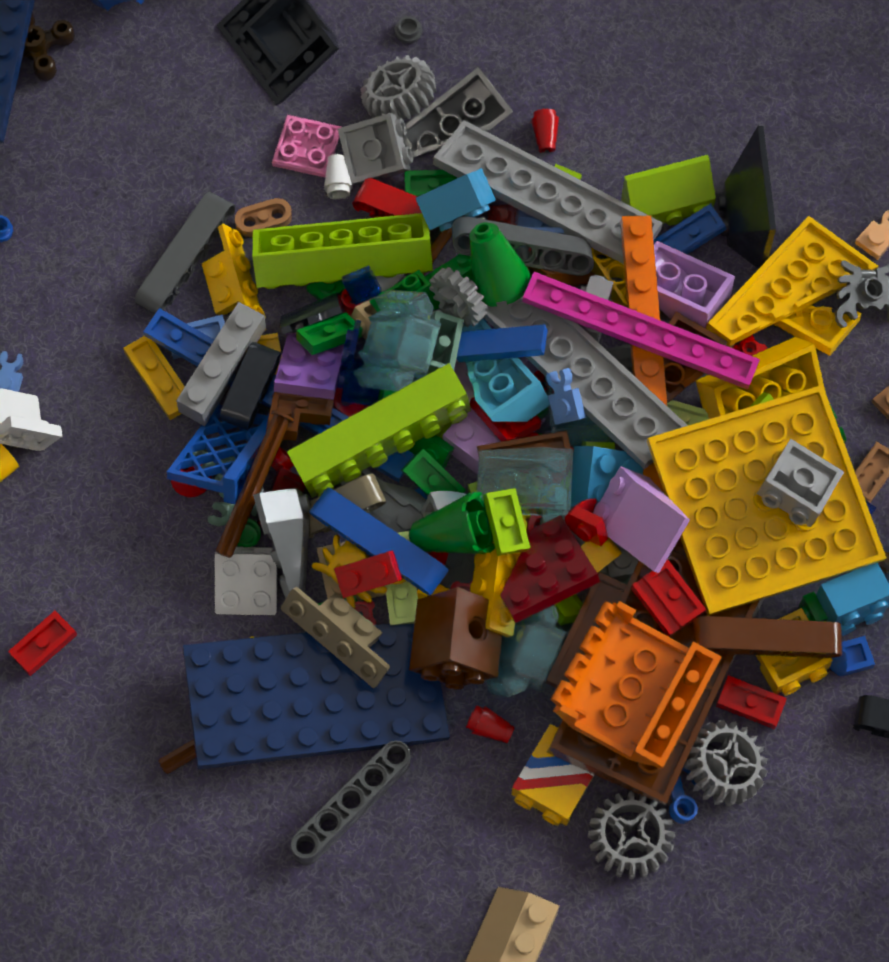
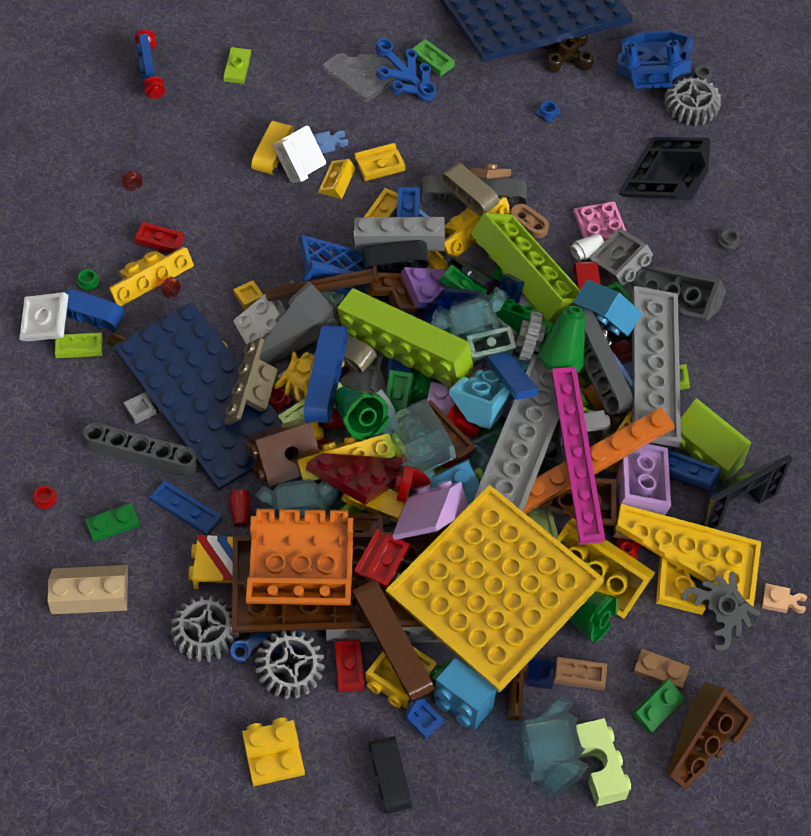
camera: 60 degrees right, 10 degrees down
(57, 758) = (87, 280): none -> green plate
(69, 396) = (337, 178): none -> yellow slope
(77, 334) = (379, 162): none -> yellow plate
(88, 680) = (149, 273): none -> yellow bracket
(92, 833) = (44, 317): none -> white plate
(106, 108) = (548, 106): none -> blue plate
(107, 773) = (93, 310): none -> blue beam
(127, 663) = (168, 286): none -> clear red plate
(153, 810) = (79, 345): none -> lime plate
(175, 221) = (491, 171): none -> medium nougat plate
(191, 578) = (247, 294): none -> yellow plate
(194, 255) = (469, 189): none -> dark tan beam
(288, 777) = (139, 408): none -> light grey plate
(356, 943) = (44, 497): none -> red plate
(368, 574) = (296, 375): red plate -> none
(398, 88) = (675, 248): light grey gear -> none
(432, 879) = (112, 522): none -> green plate
(454, 786) = (185, 507): none -> blue tile
(506, 522) = (377, 432): lime plate -> none
(545, 129) = (711, 350): red cone -> none
(564, 402) = (494, 431): medium blue plate -> none
(800, 483) = (513, 595): light grey plate -> none
(817, 831) = (273, 751): none -> yellow plate

